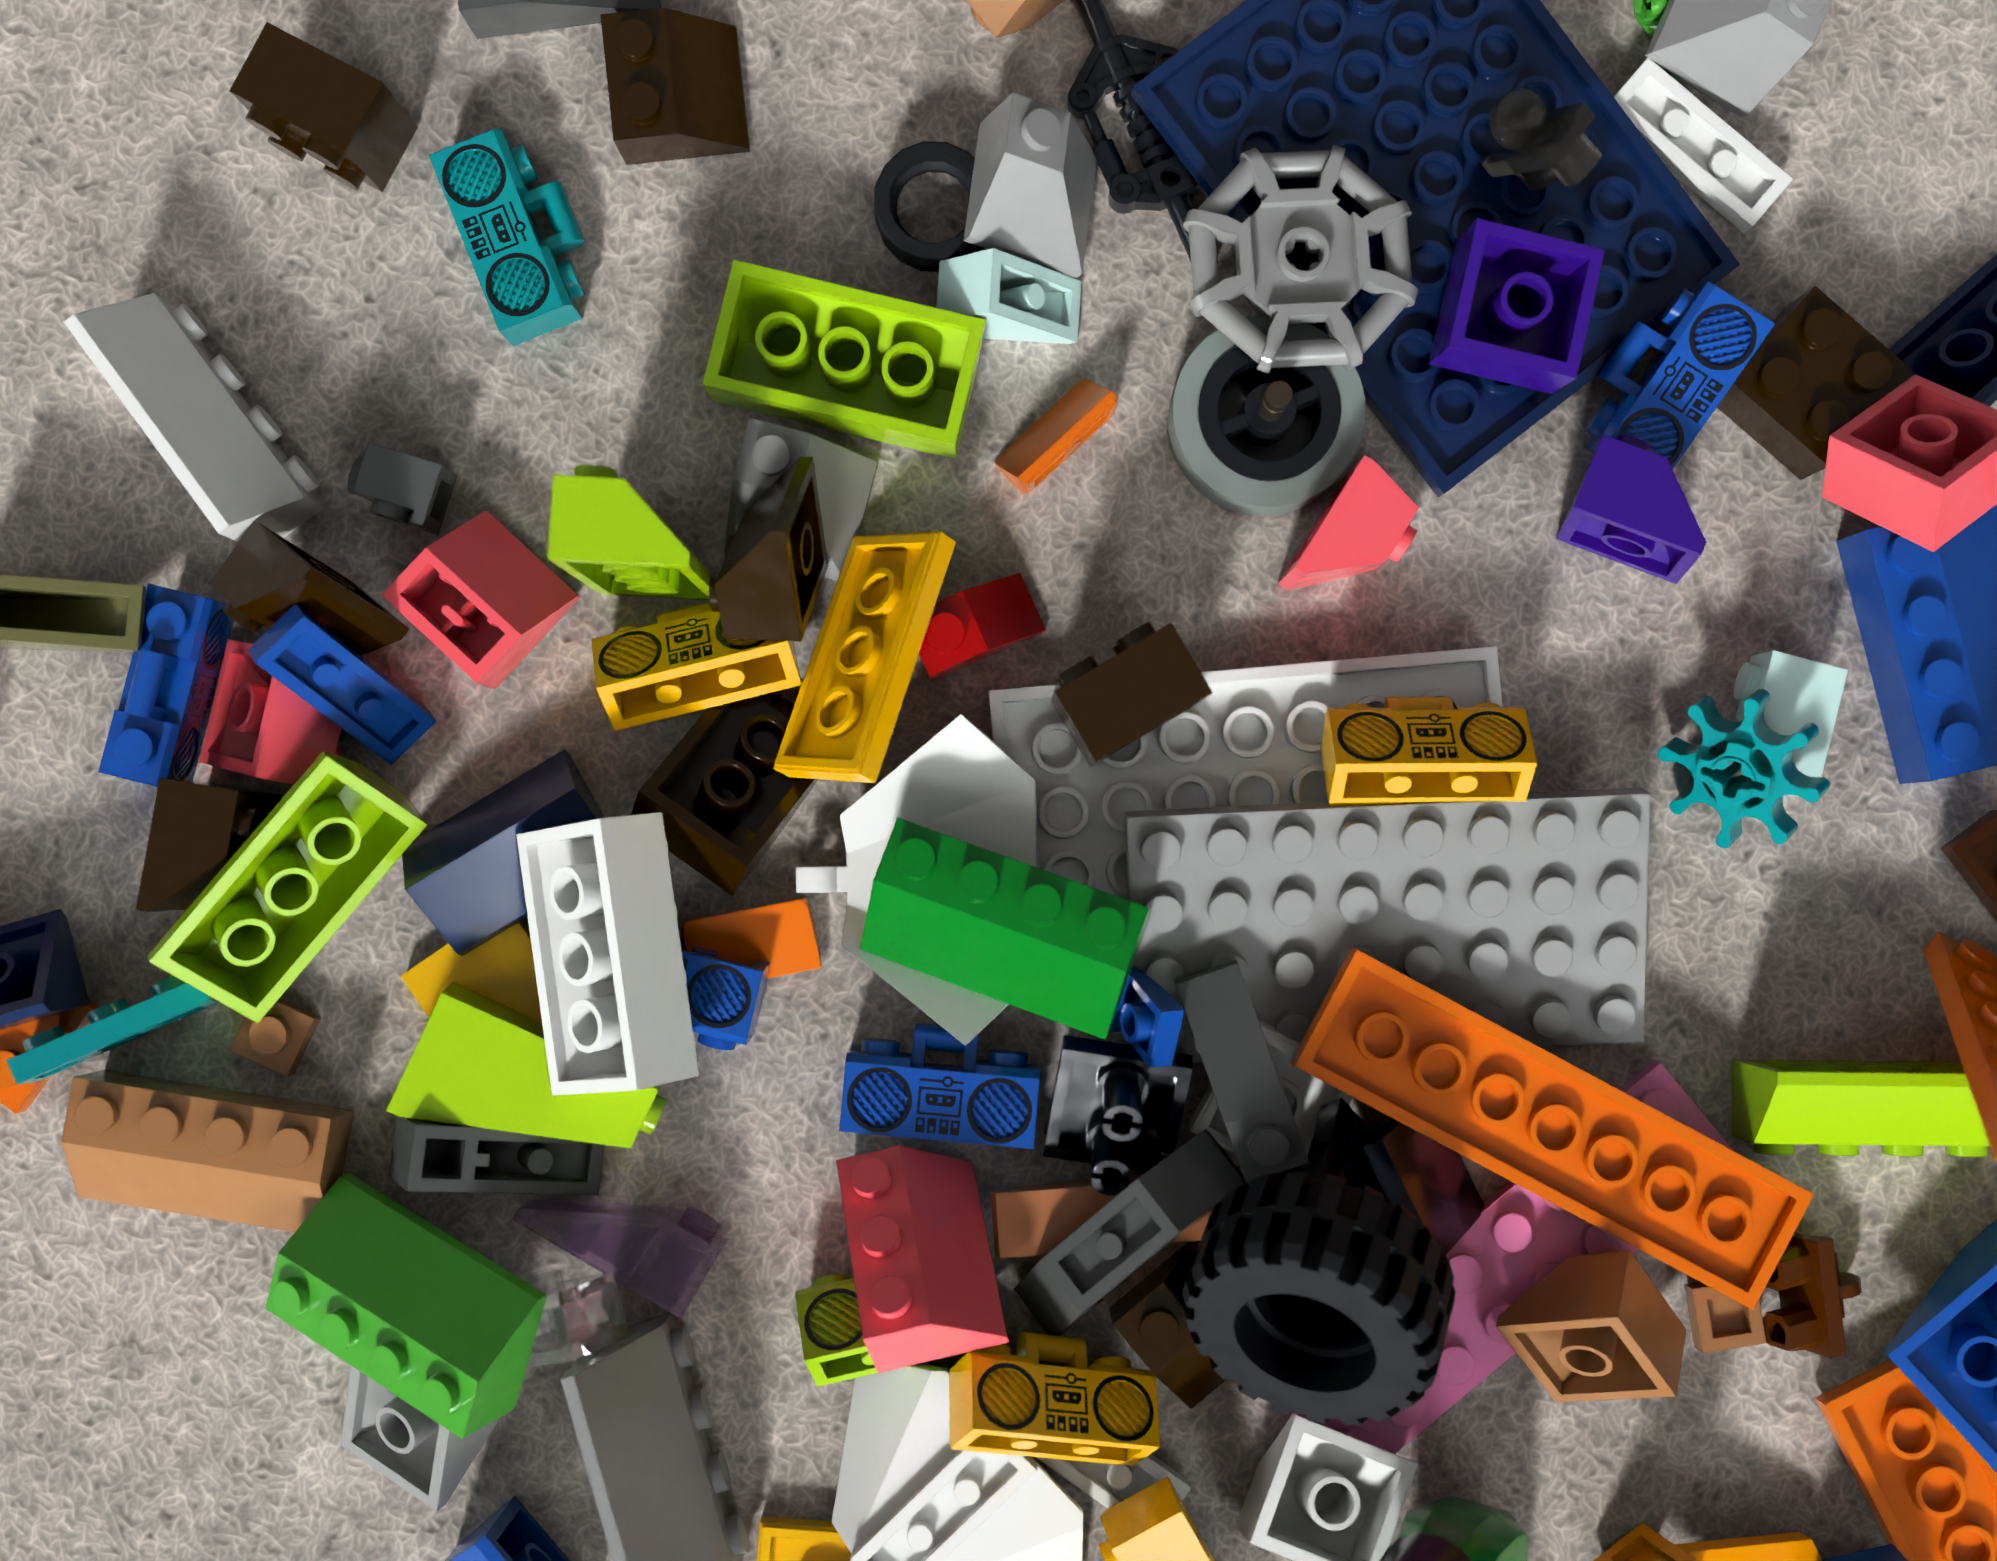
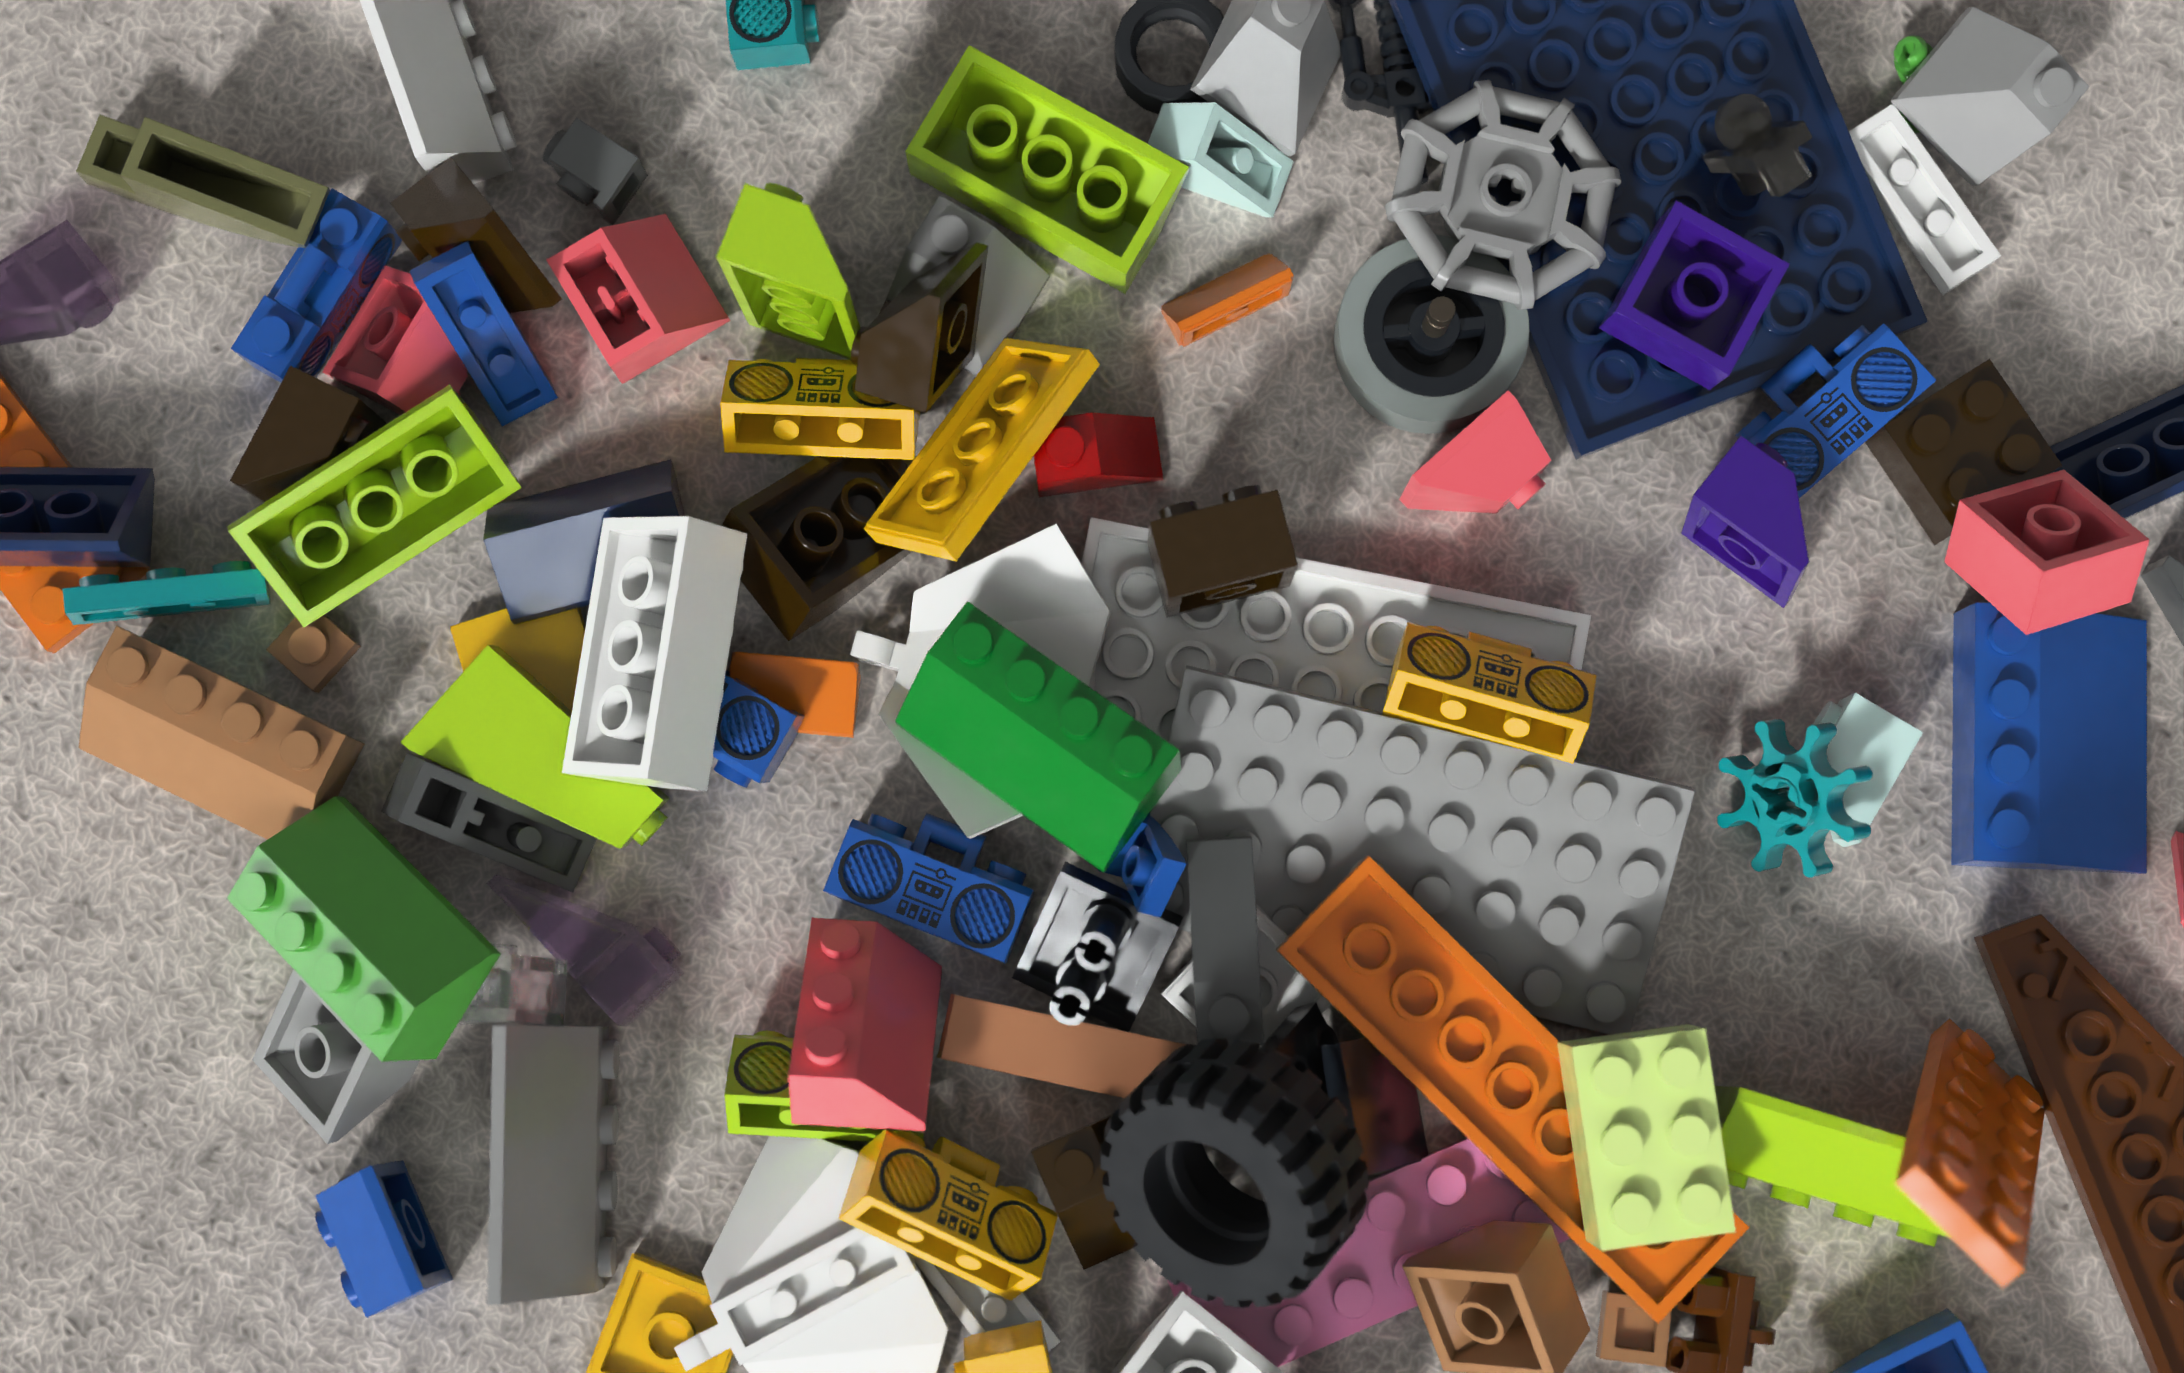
camera: 20 degrees right, 5 degrees down
(1128, 1232) = (1064, 1065): dark grey slope -> none
(1700, 1145) = (1646, 1137): none -> yellowish green brick

